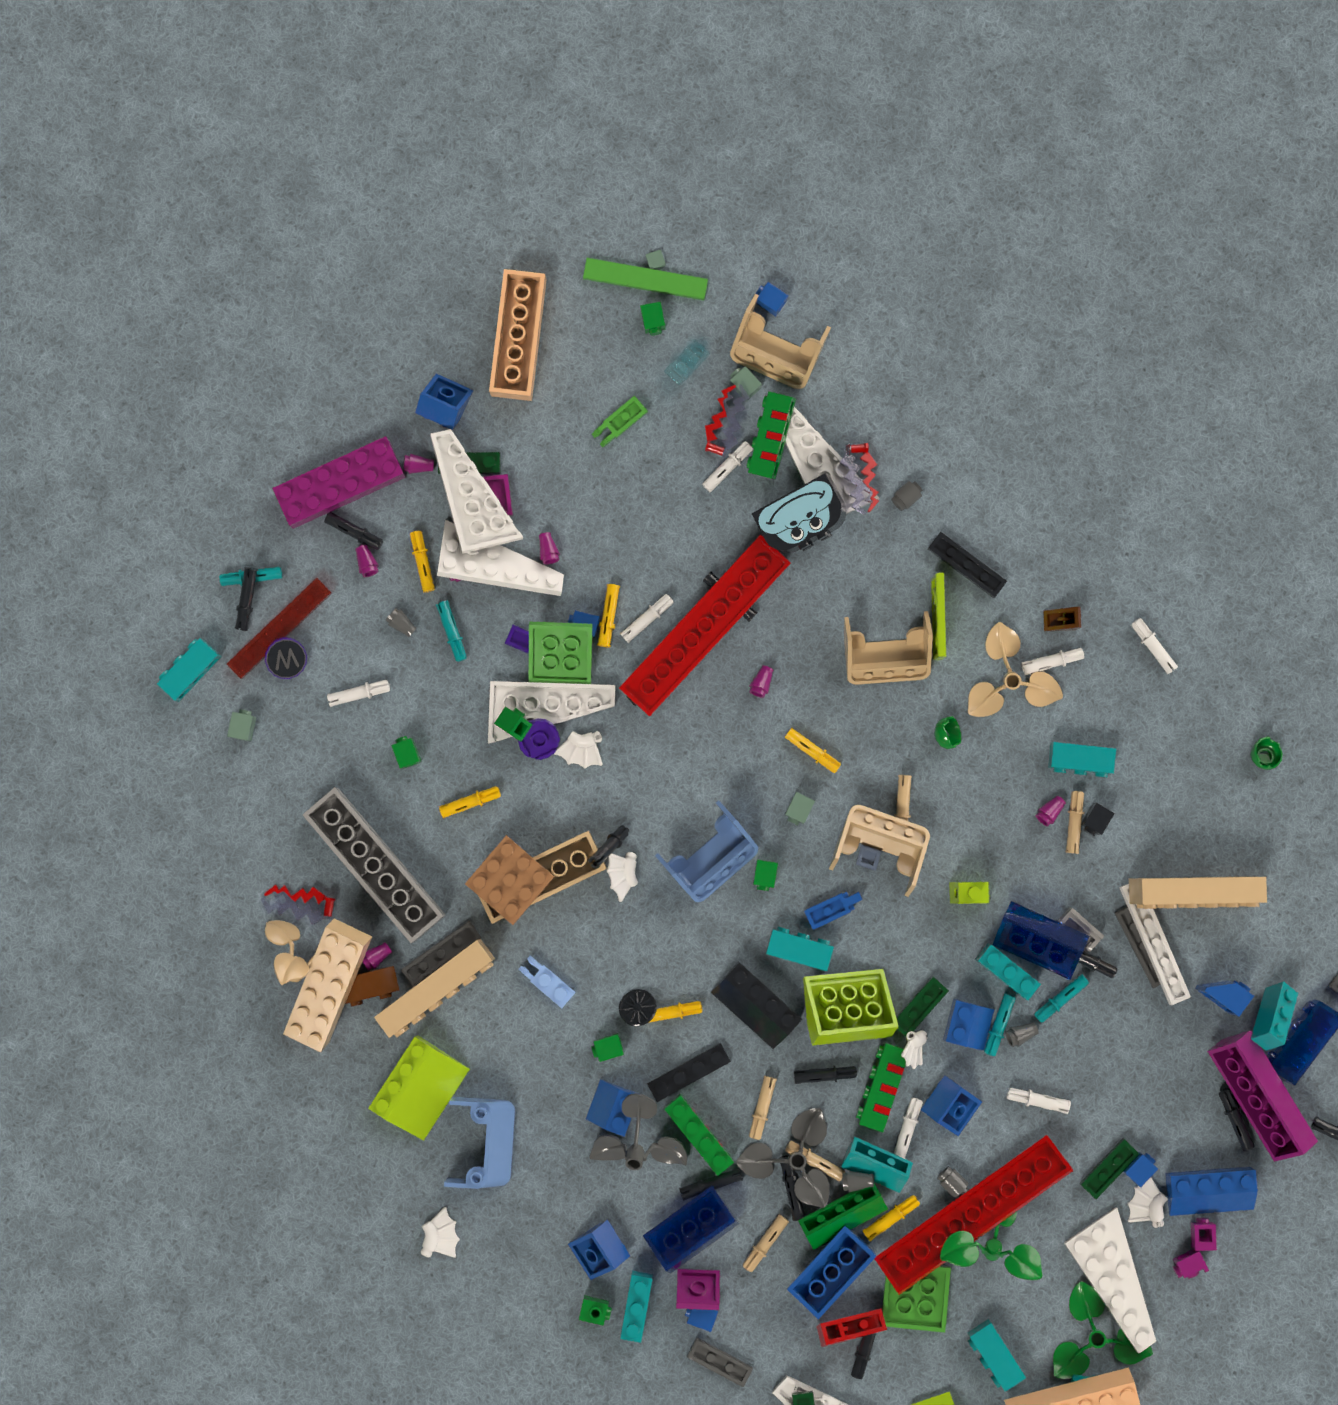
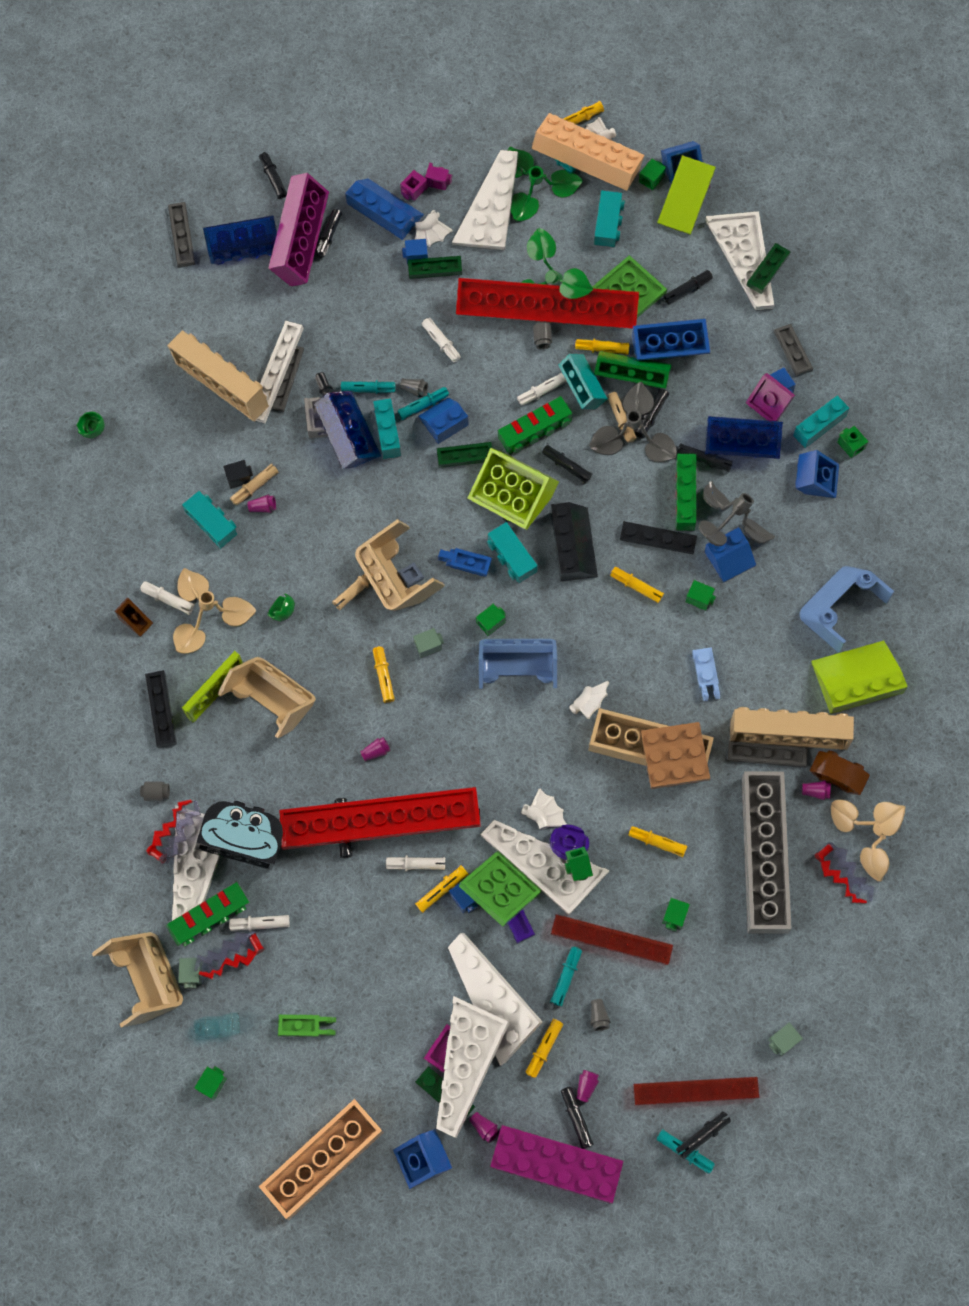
camera: 140 degrees left, 15 degrees down
(188, 669) = (792, 1119): teal brick -> none
(285, 658) = (709, 1062): black tile -> none
(327, 985) = (861, 791): tan brick -> none
(360, 692) = (675, 990): white axle -> none
(440, 690) = (612, 939): none -> clear red plate
(440, 1235) = (922, 570): white arm -> none
(548, 549) = (442, 976): magenta cone -> none
(613, 841) = (577, 724): black axle -> none
(637, 1007) = (657, 605): black wheel -> none
(645, 279) = (189, 1121): bright green tile -> none
(655, 259) = (167, 1129): sand green piece -> none
(762, 1107) = (627, 476): tan axle -> none
(767, 1240) = (701, 394): tan axle -> none
(771, 298) = (111, 1018): blue brick -> none
(851, 1327) = (688, 301): red slope -> none
(856, 1181) = (604, 380): dark grey cone -> none
(913, 1048) = (488, 433): white arm -> none
(951, 1105) = (501, 380): blue slope -> none
(969, 892) = (362, 494): lime torso -> none
(1153, 645) = (92, 551): white axle -> none
(1228, 995) = (260, 302): blue slope -> none
(1274, 1016) = (245, 266): teal brick -> none

